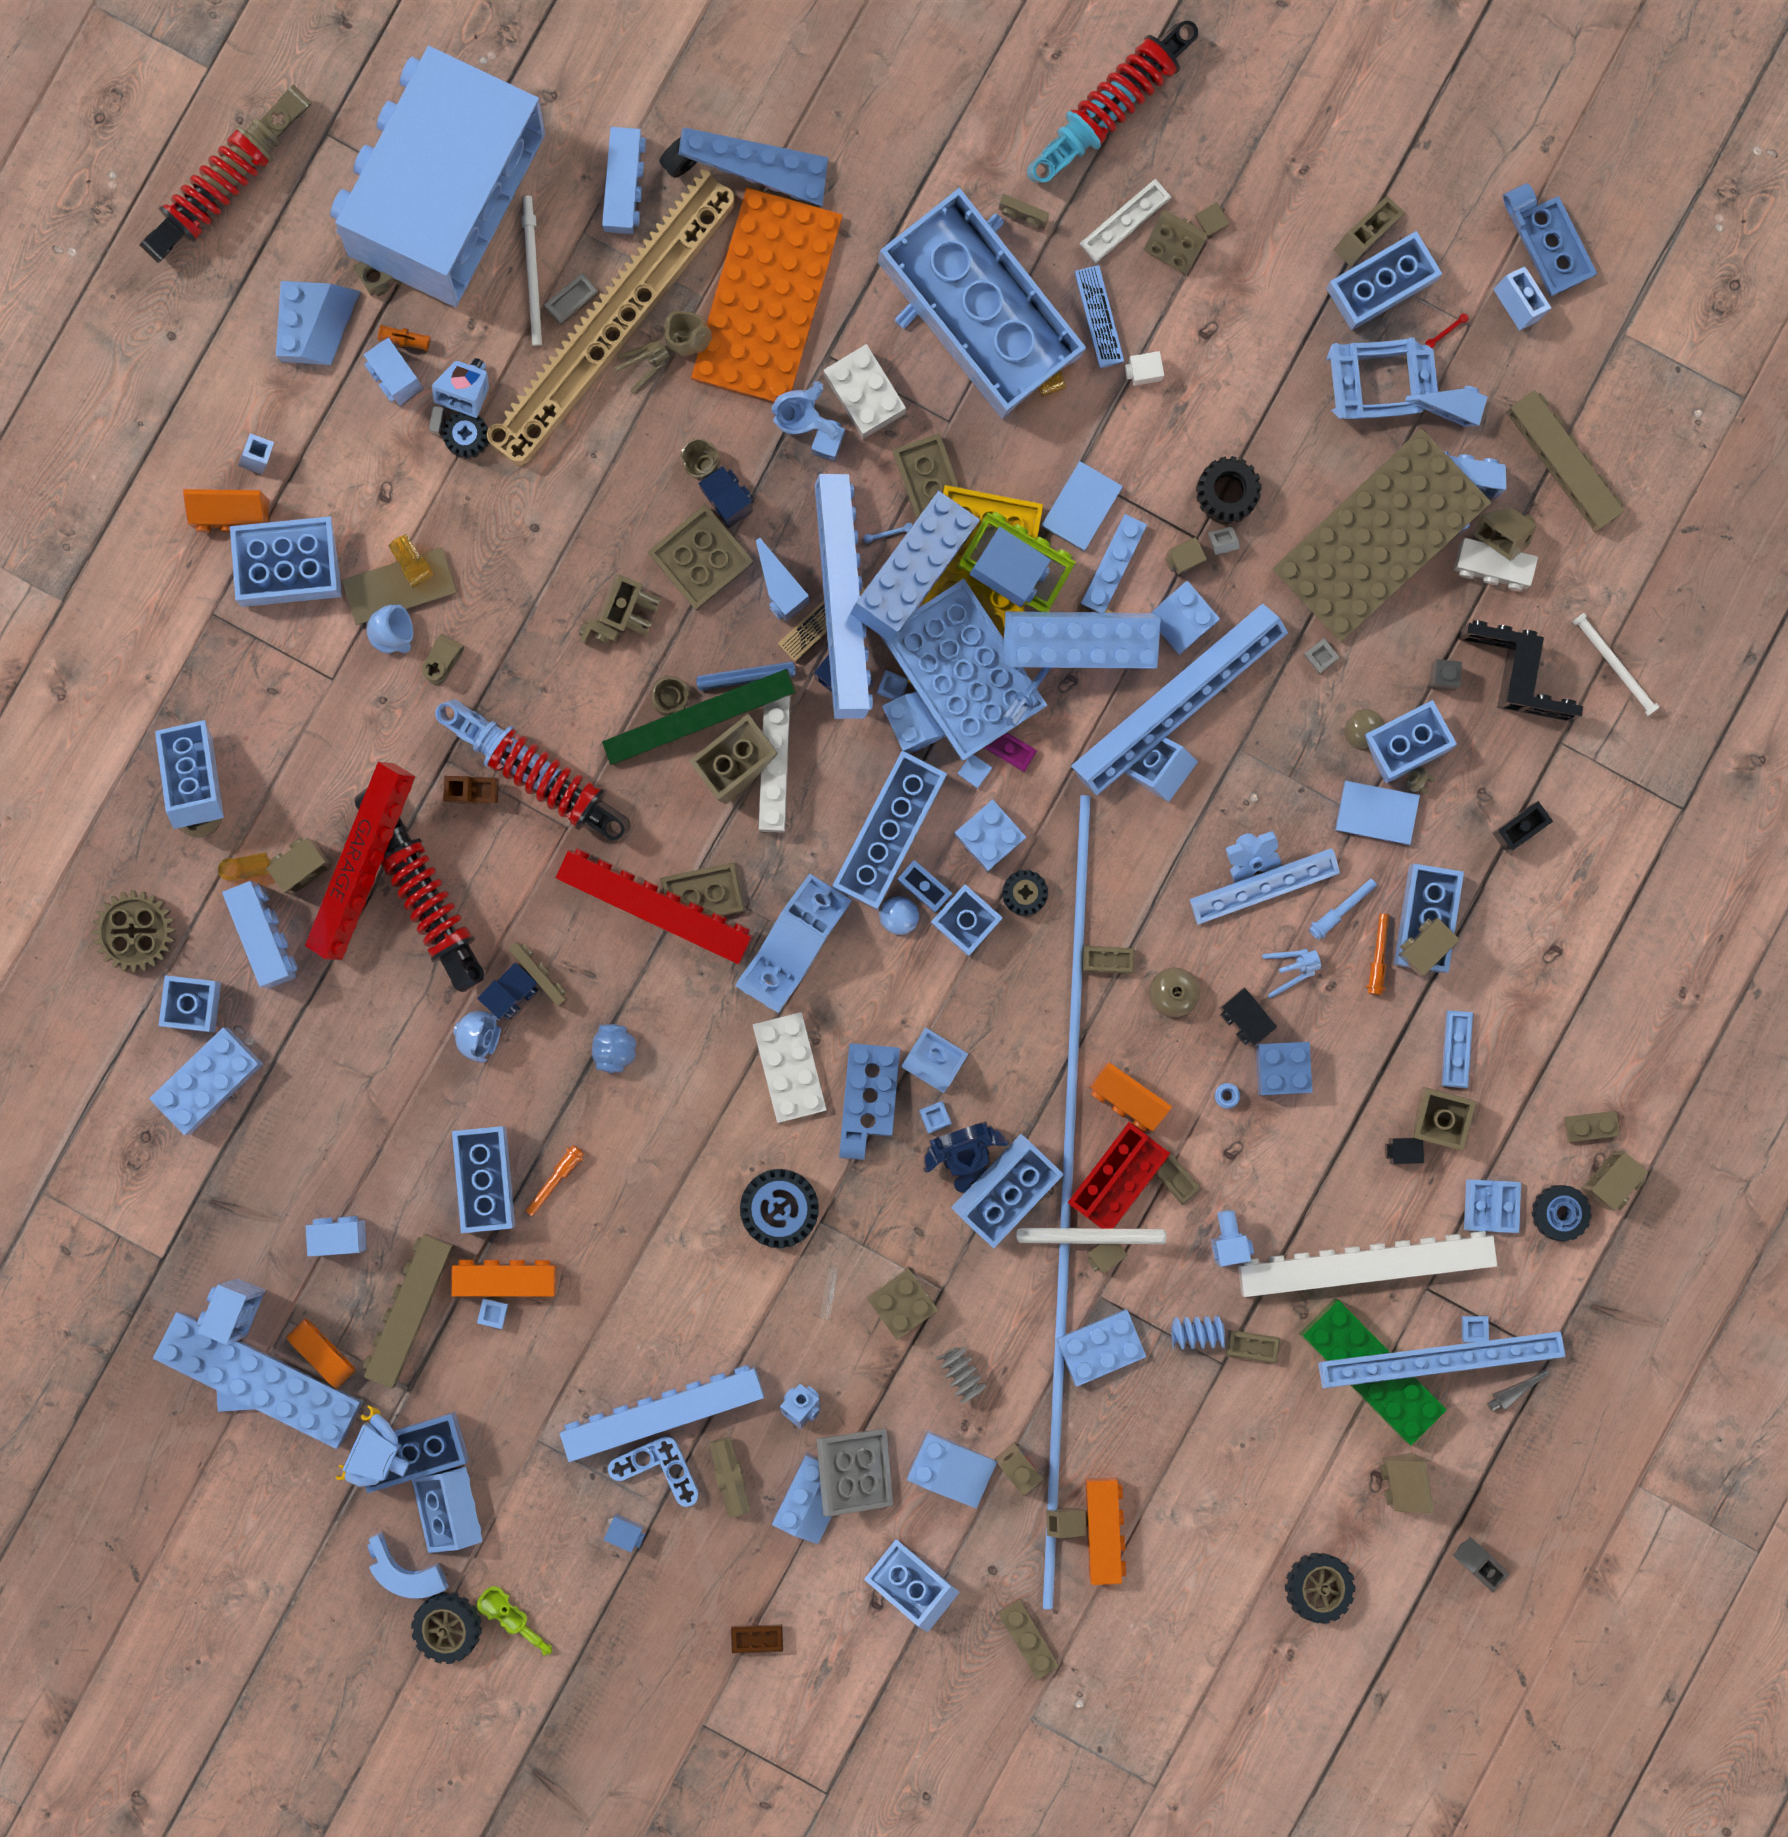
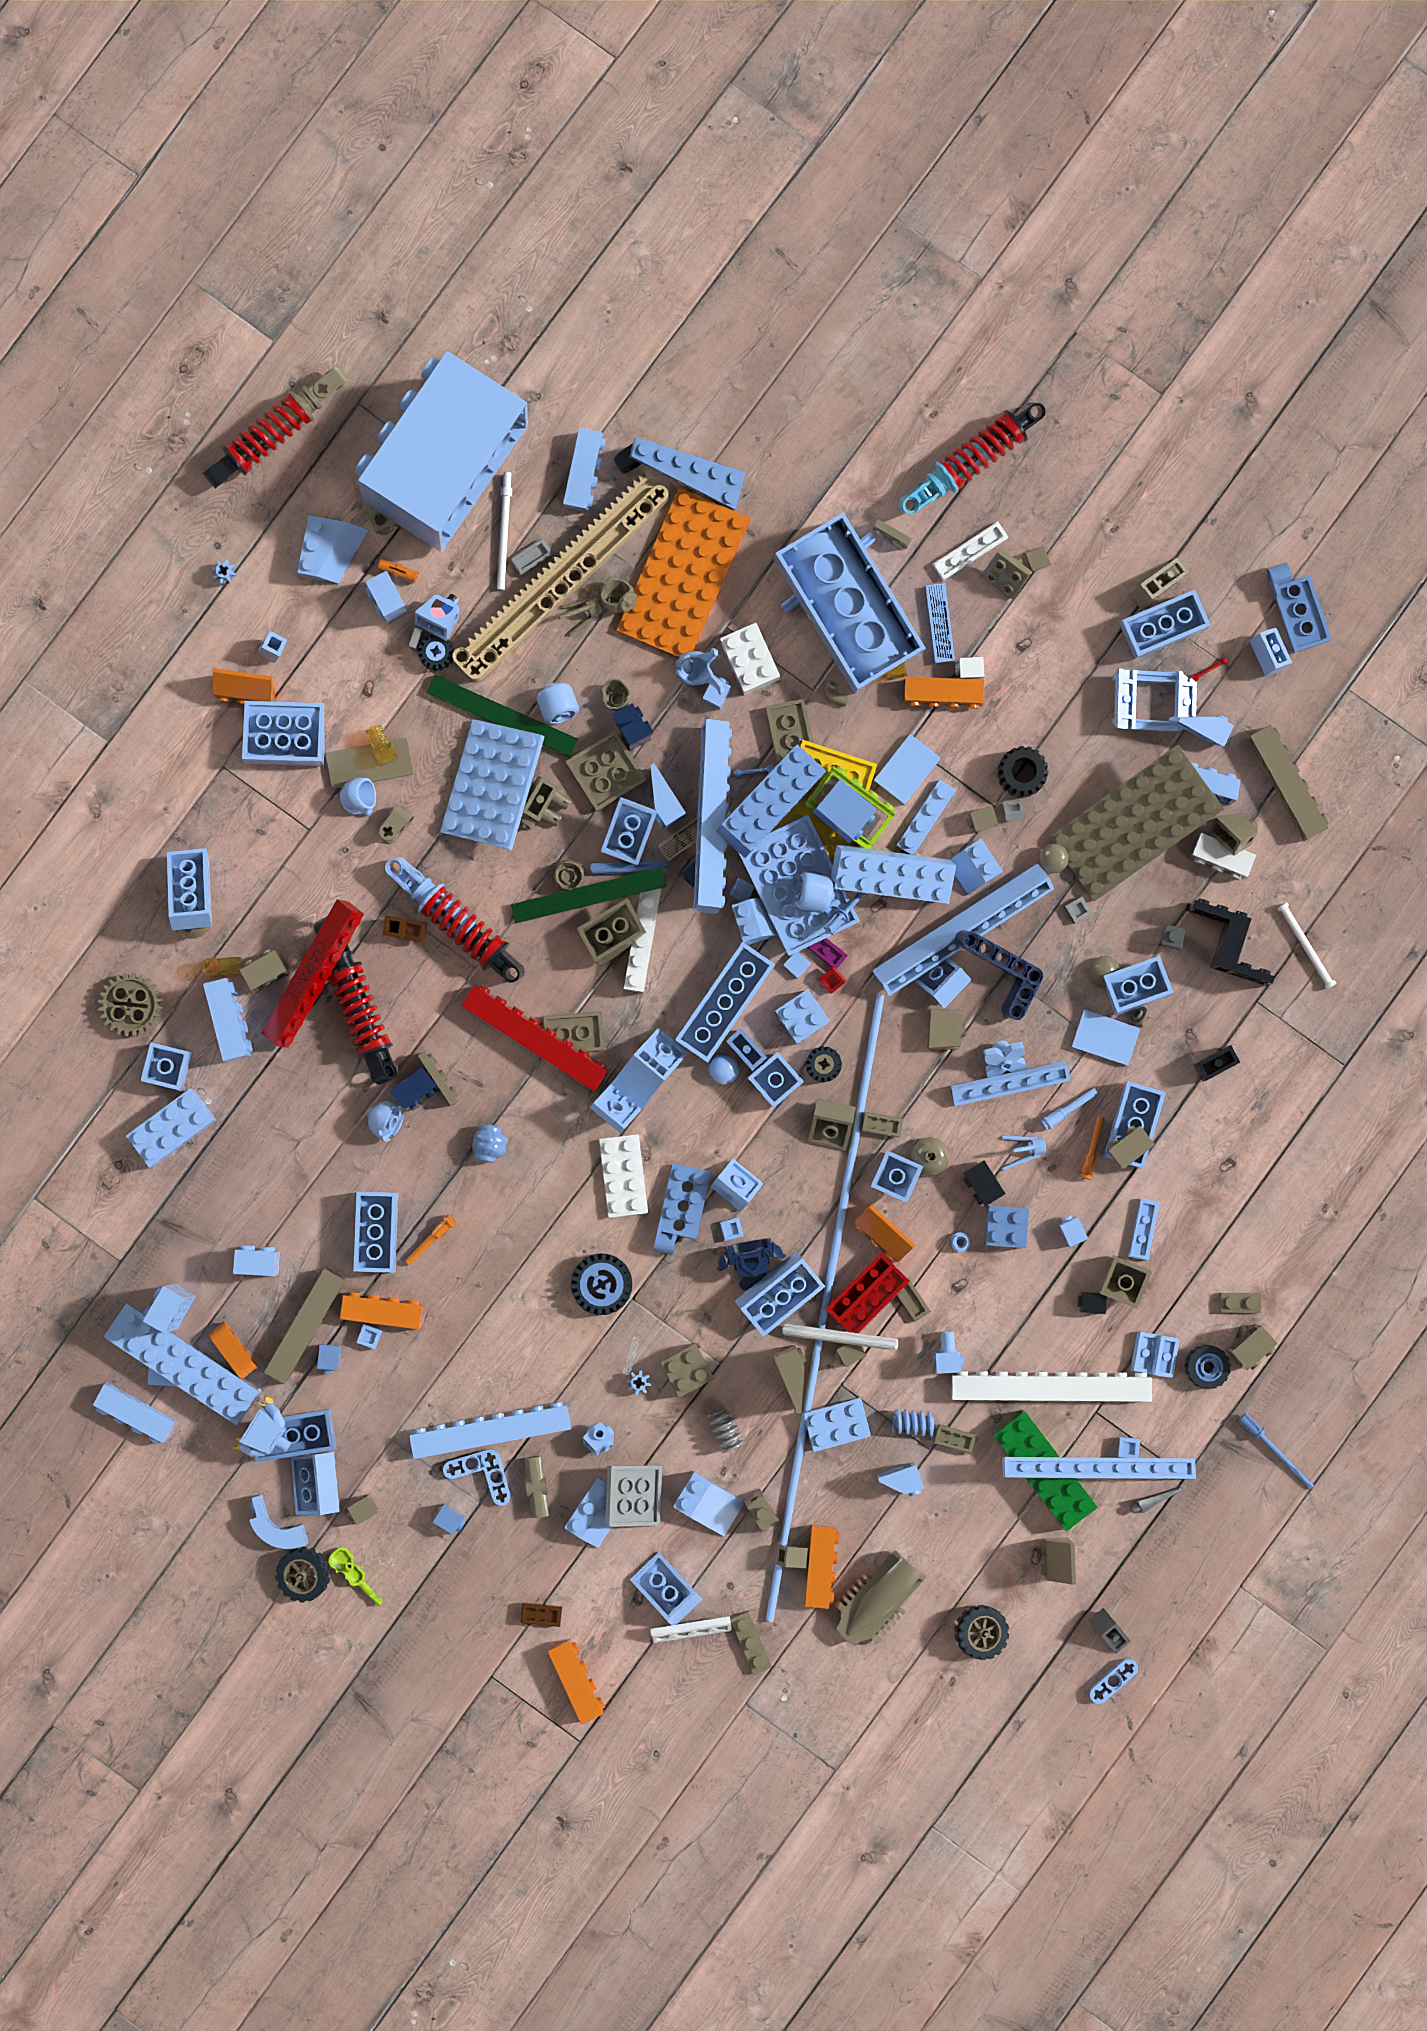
camera: 10 degrees right, 0 degrees up
(178, 361) = (218, 570): none -> light blue gear
(206, 1450) = (134, 1413): none -> light blue brick
(444, 1347) = (329, 1358): none -> medium blue brick
(512, 1535) = (362, 1510): none -> dark tan brick
(558, 592) = (492, 784): none -> light blue plate
(560, 504) = (500, 714): none -> dark green tile
(628, 479) = (557, 703): none -> light blue head
(739, 628) = (629, 831): none -> light blue slope
(812, 1718) = (575, 1681): none -> orange brick
(837, 1331) = (642, 1387): none -> light blue gear
(950, 1633) = (691, 1629): none -> white tile
(976, 424) = (833, 694): none -> dark tan arm
(984, 675) = (813, 892): none -> light blue head
(1021, 784) = (832, 979): none -> red plate
(1036, 1286) = (791, 1367): none -> dark tan slope
(1045, 968) = (831, 1124): none -> dark tan slope
(1115, 401) = (943, 691): none -> orange brick
(1136, 1022) = (897, 1176): none -> light blue slope
(1173, 828) = (945, 1029): none -> dark tan torso
(1182, 1564) = (877, 1600): none -> dark tan connector
(1194, 1406) = (903, 1479): none -> light blue slope
(1240, 736) = (1006, 965): none -> dark blue beam
(1282, 594) = (1053, 858): none -> dark tan hair
(1368, 1063) = (1072, 1231): none -> light blue brick
(1505, 1627) = (1128, 1675): none -> light blue beam
(1636, 1287) = (1257, 1432): none -> medium blue piece

